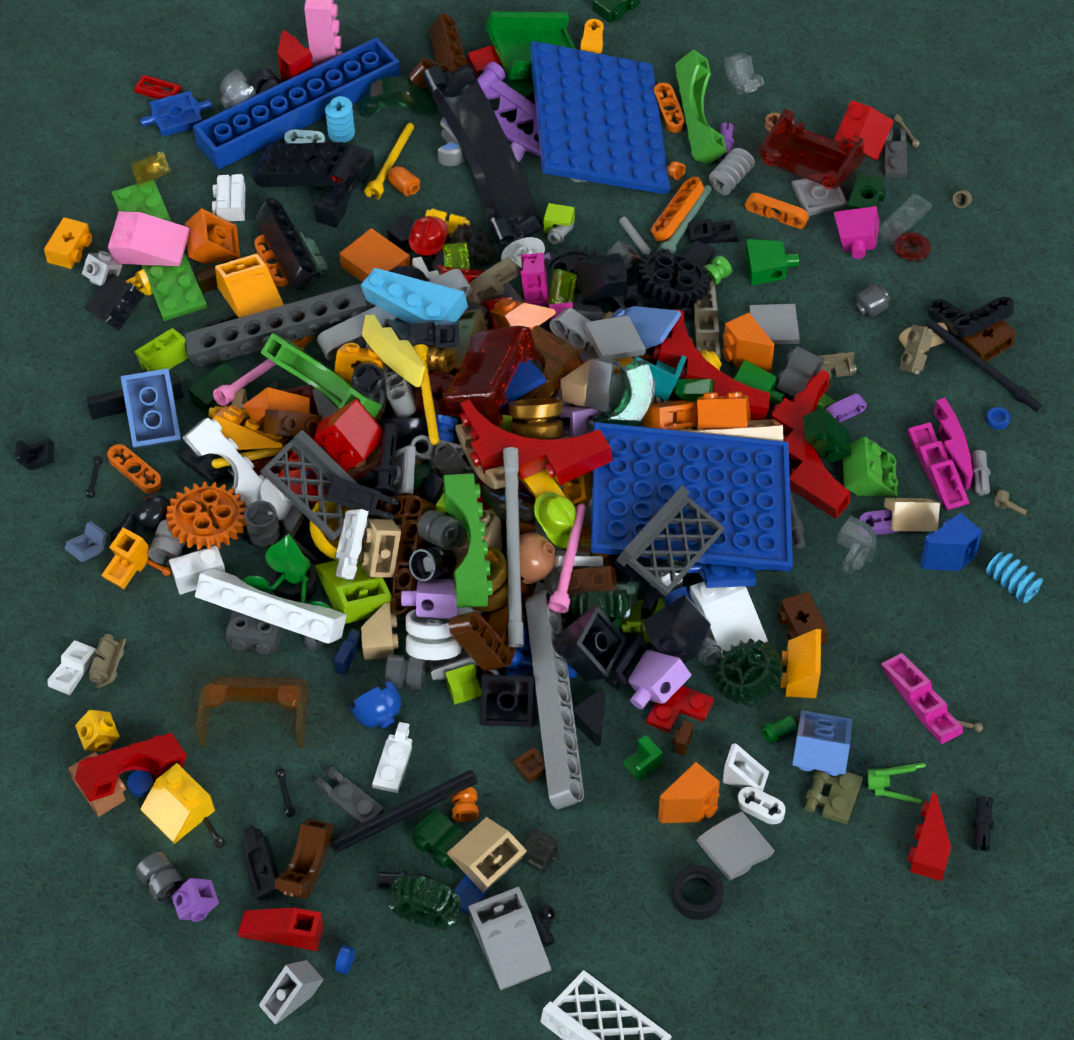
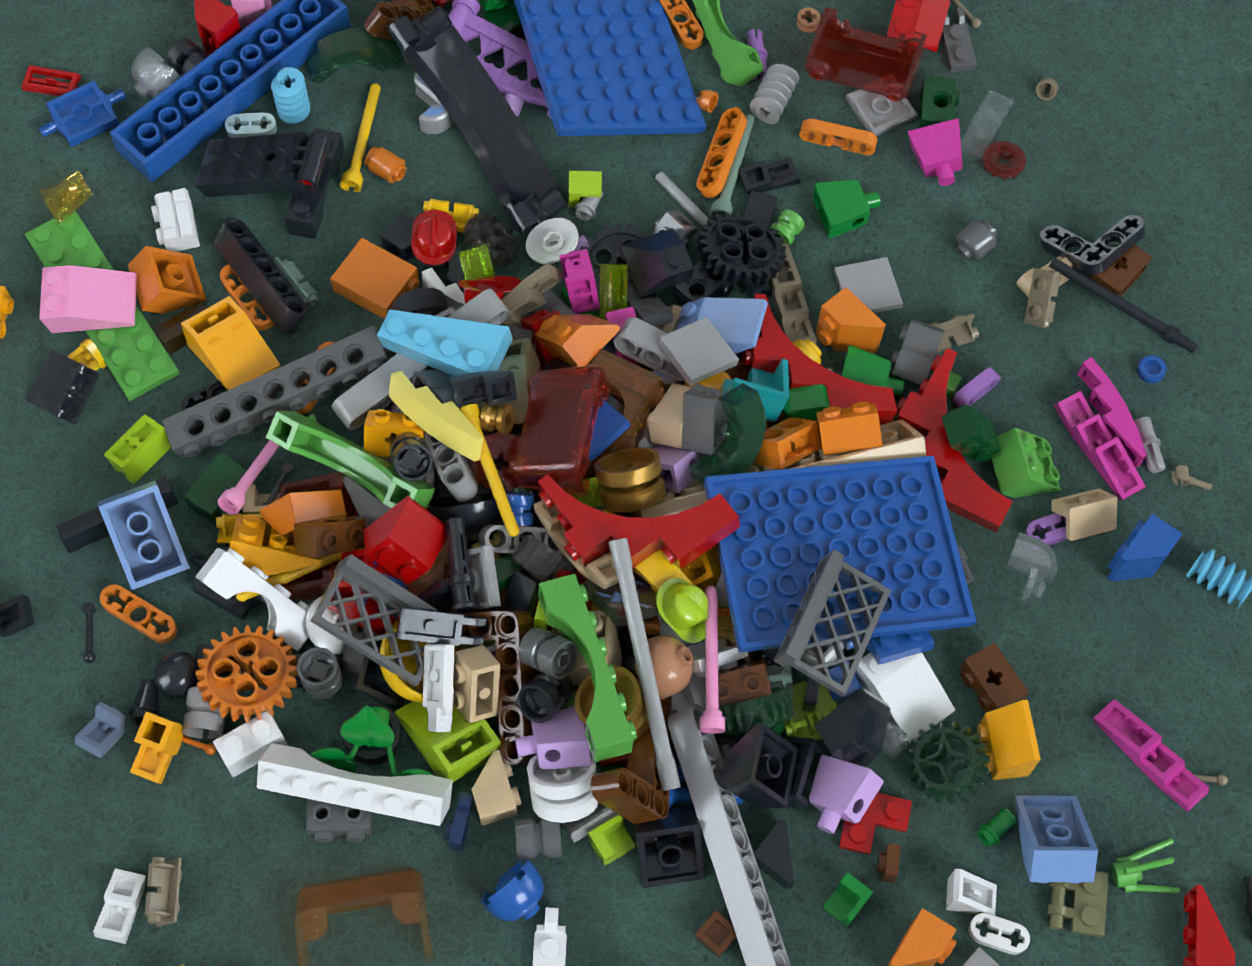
camera: 15 degrees left, 10 degrees up
(100, 266) = (34, 344): light grey brick -> none

